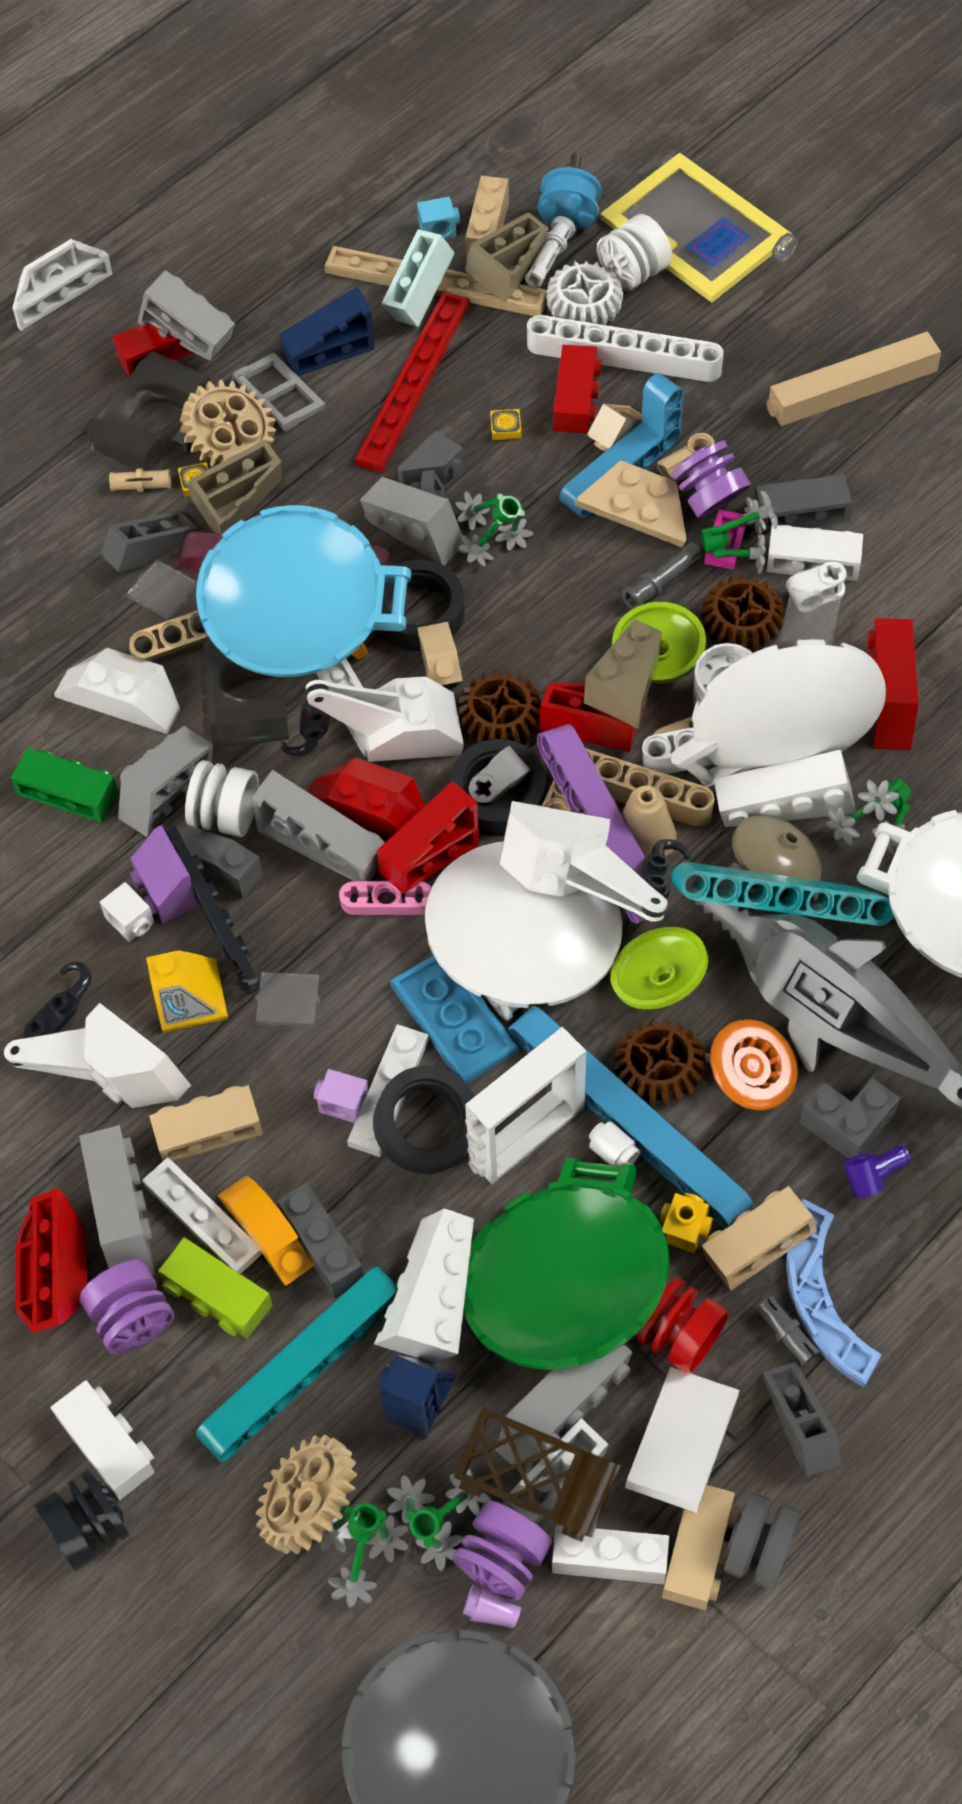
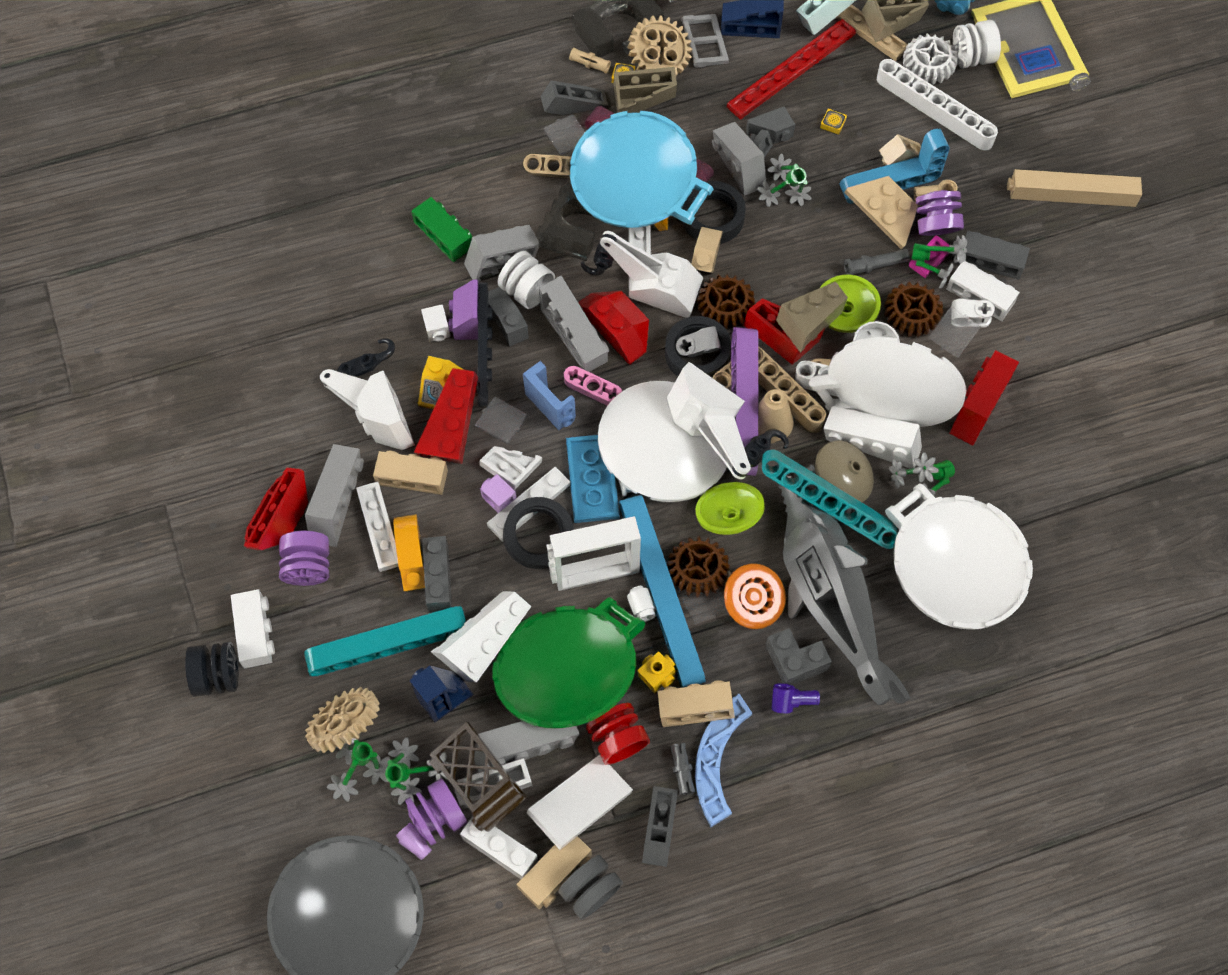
camera: 25 degrees right, 5 degrees up
(122, 688) = (509, 185): white wedge -> none
(214, 1289) = (361, 573): lime brick -> none
(225, 1034) = (450, 419): none -> red wedge
(334, 1050) = (510, 465): none -> white wing
(337, 941) = (536, 389): none -> medium blue panel
(431, 839) = (635, 363): red wedge -> none
(555, 244) = (930, 17): white pin -> none
(576, 389) = (890, 117): red brick -> none

